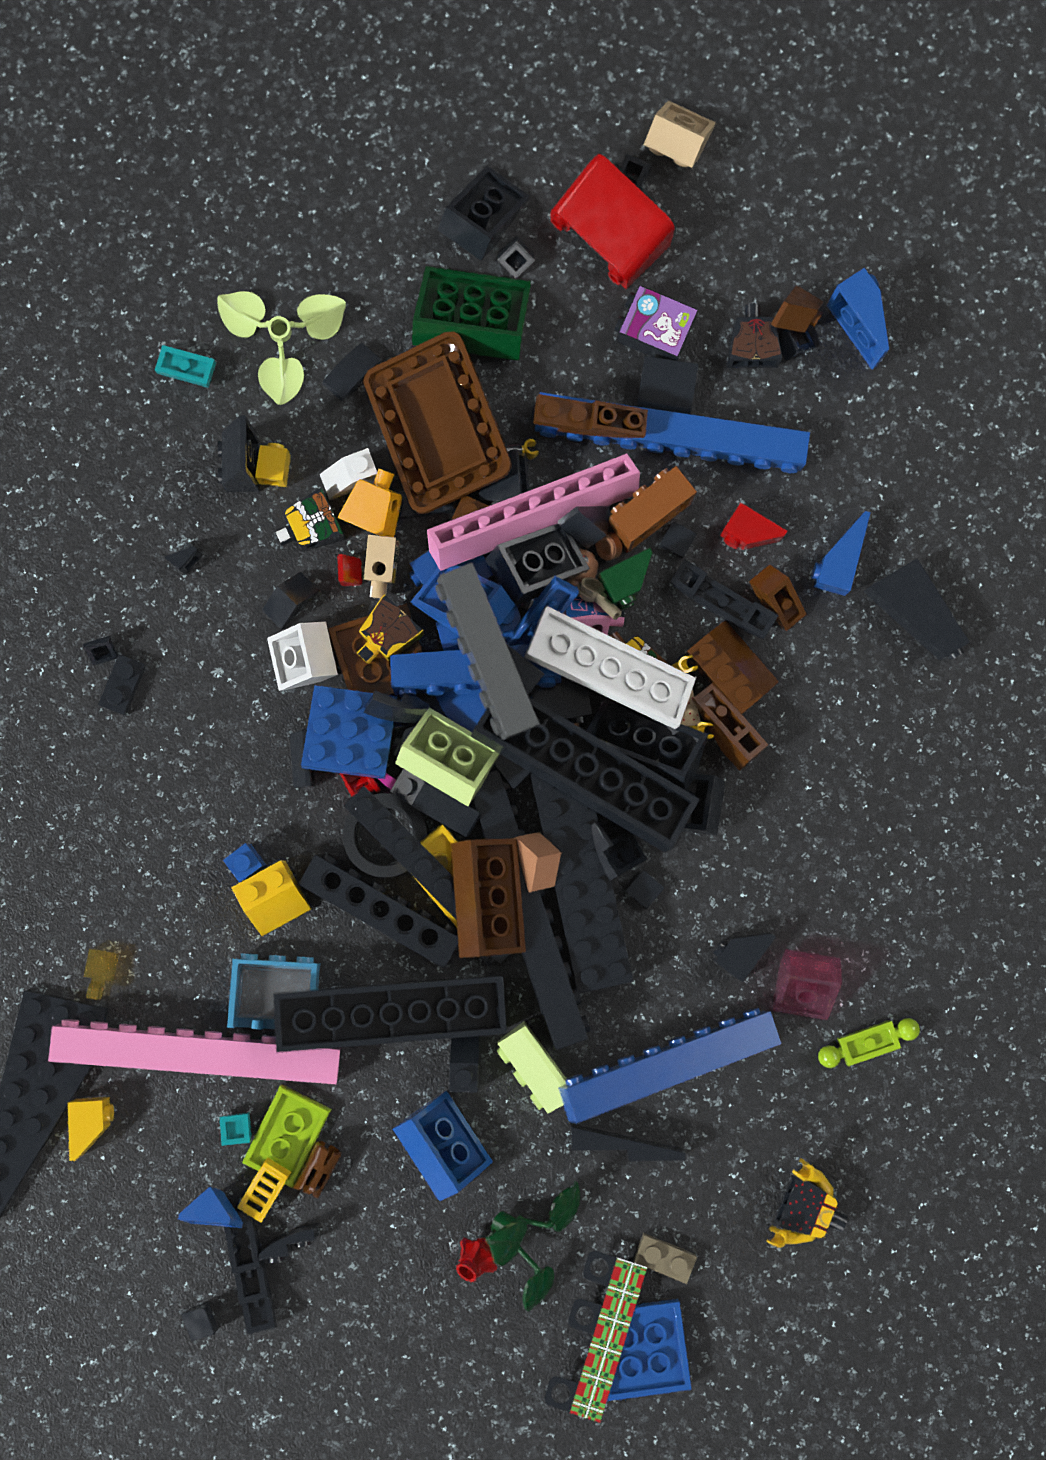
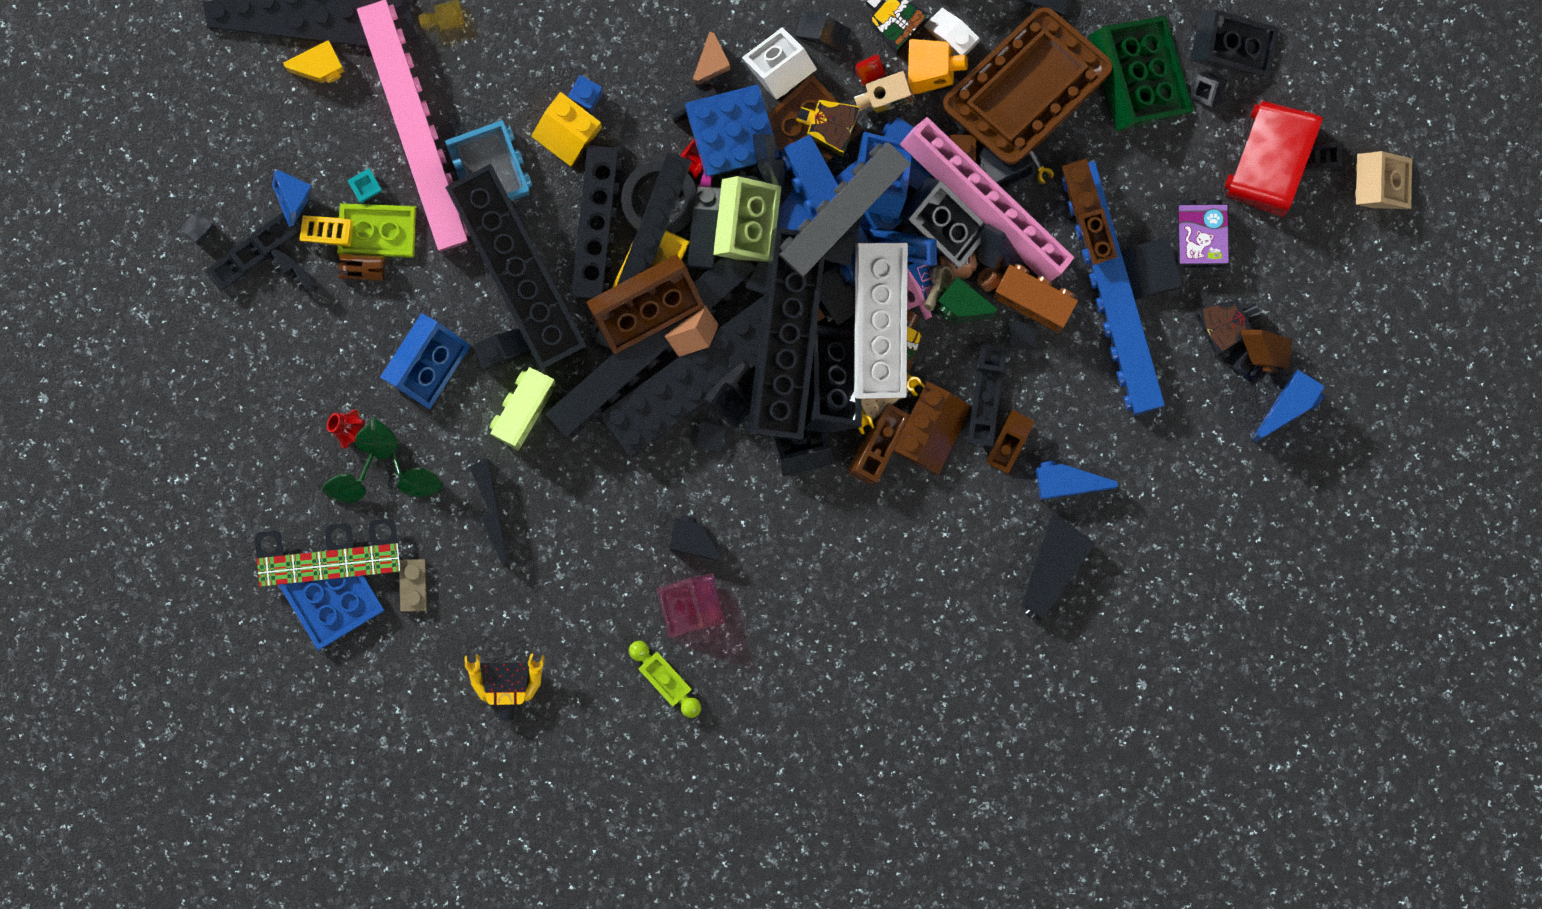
camera: 70 degrees right, 0 degrees up
(270, 721) = (712, 61): none -> nougat slope
(668, 1066) = (574, 514): blue brick -> none
(750, 529) = (1058, 392): red slope -> none

